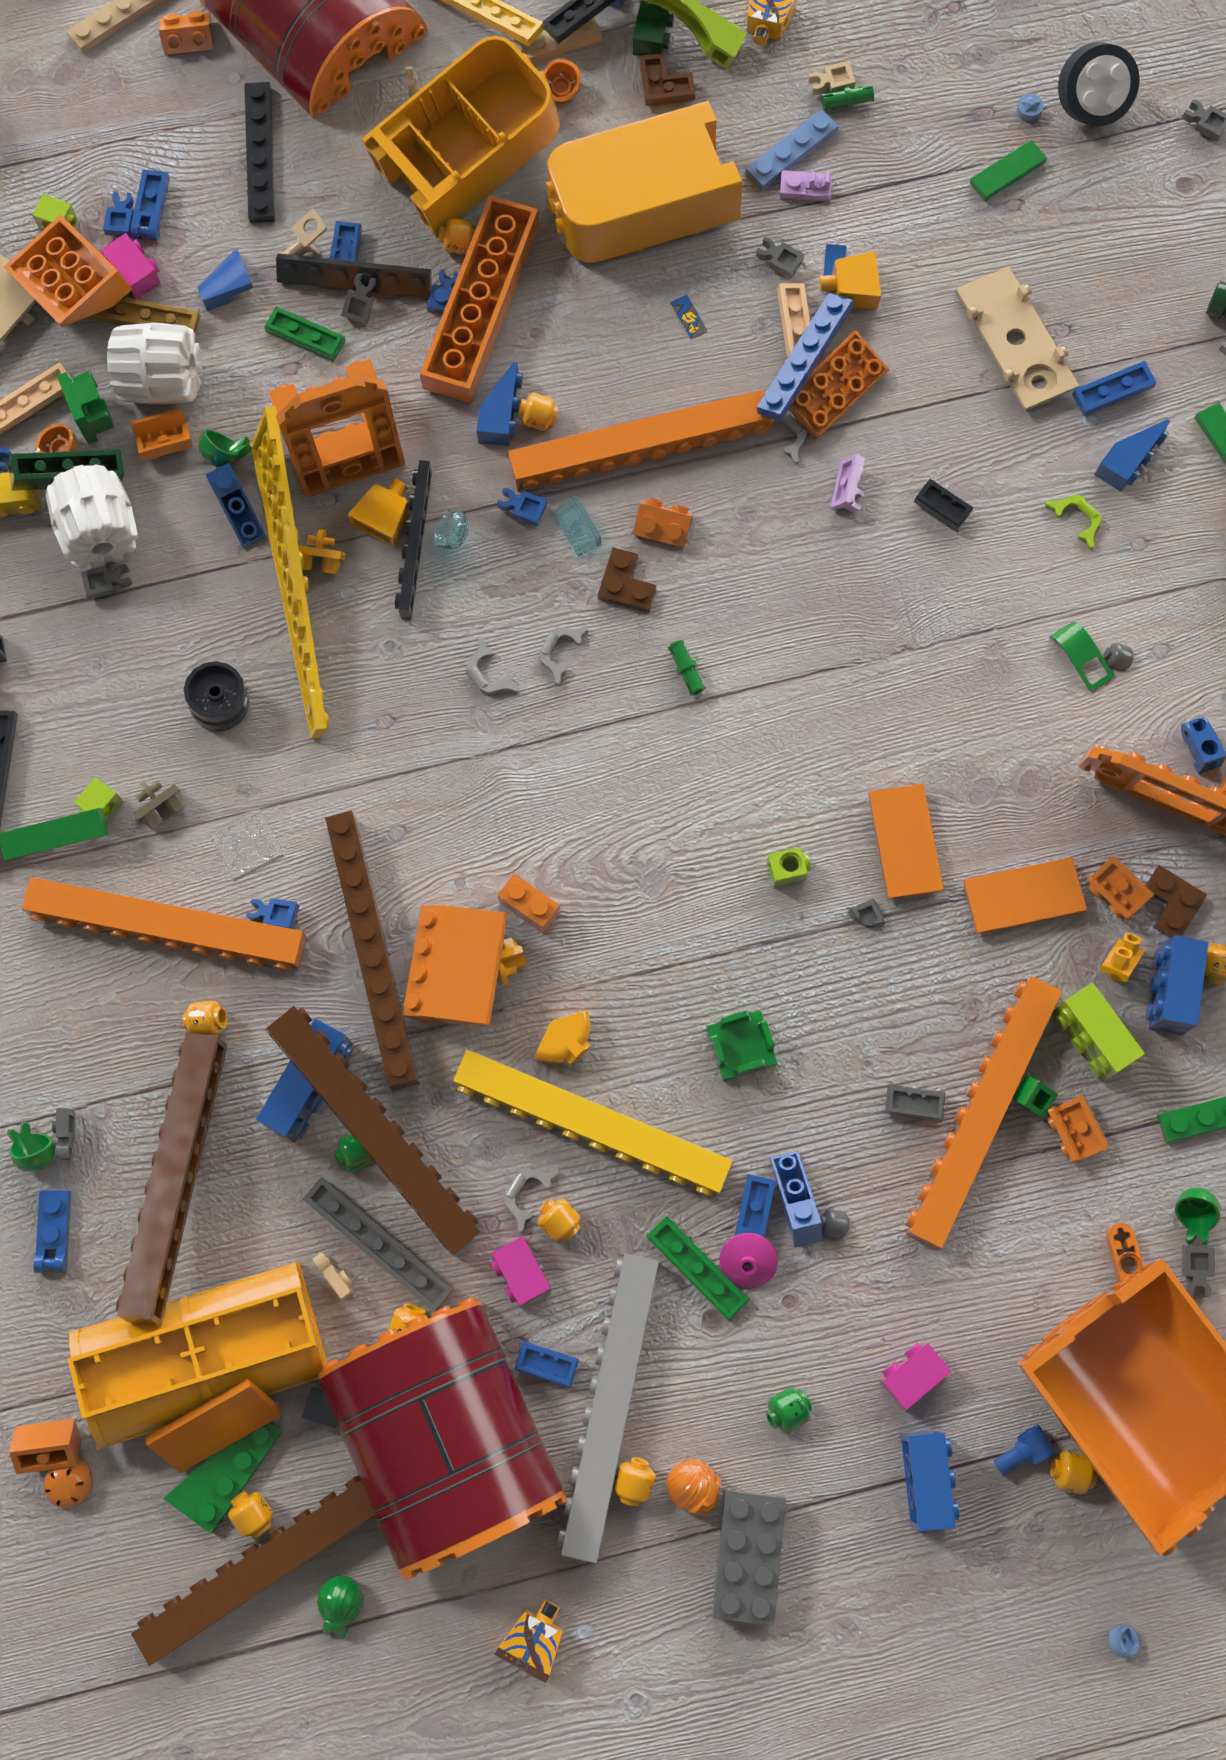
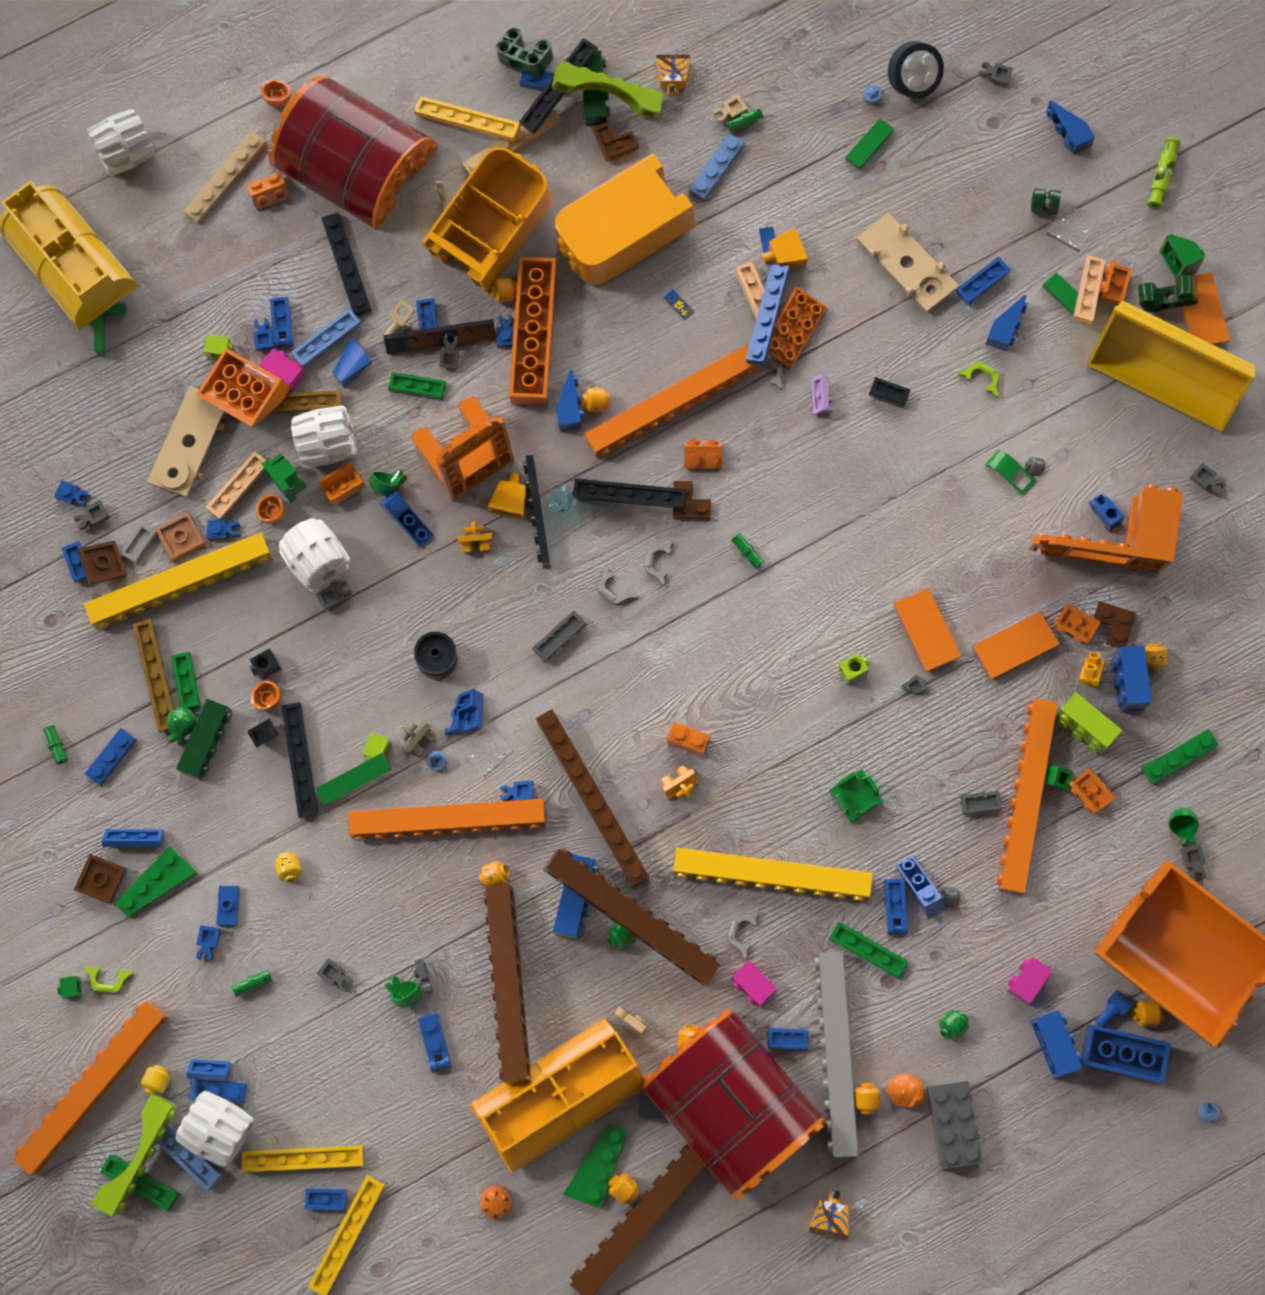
camera: 10 degrees left, 0 degrees up
(38, 470) = (275, 529): dark green brick -> none
(45, 1446) = (475, 1182): orange brick -> none
(176, 841) = (437, 761): none -> medium blue tile
(202, 240) = (326, 338): none -> medium blue plate
(213, 1425) = (583, 1137): orange tile -> none
(237, 787) = (467, 713): none -> blue slope
(288, 563) = (438, 513): yellow wing -> none
(339, 1604) = (698, 1229): green piece -> none
(378, 1244) = (654, 992): dark grey plate -> none
(394, 716) = (559, 636): none -> dark grey plate
(455, 965) = (652, 794): orange slope -> none
(526, 508) = (607, 468): blue plate -> none
(547, 548) = (629, 493): none -> black plate
(558, 1220) = (769, 943): light orange head -> none
(561, 85) = (543, 161): orange helmet -> none
(565, 1039) = (739, 823): light orange piece -> none
(577, 526) = (644, 471): clear light blue slope -> none
(752, 1249) = (900, 927): dark pink dish -> none
(782, 259) = (733, 247): dark grey plate -> none
(805, 186) = (733, 191): lavender plate -> none
(1025, 1523) = (1125, 1054): none -> blue brick
(1129, 1242) = (1136, 861): orange beam -> none

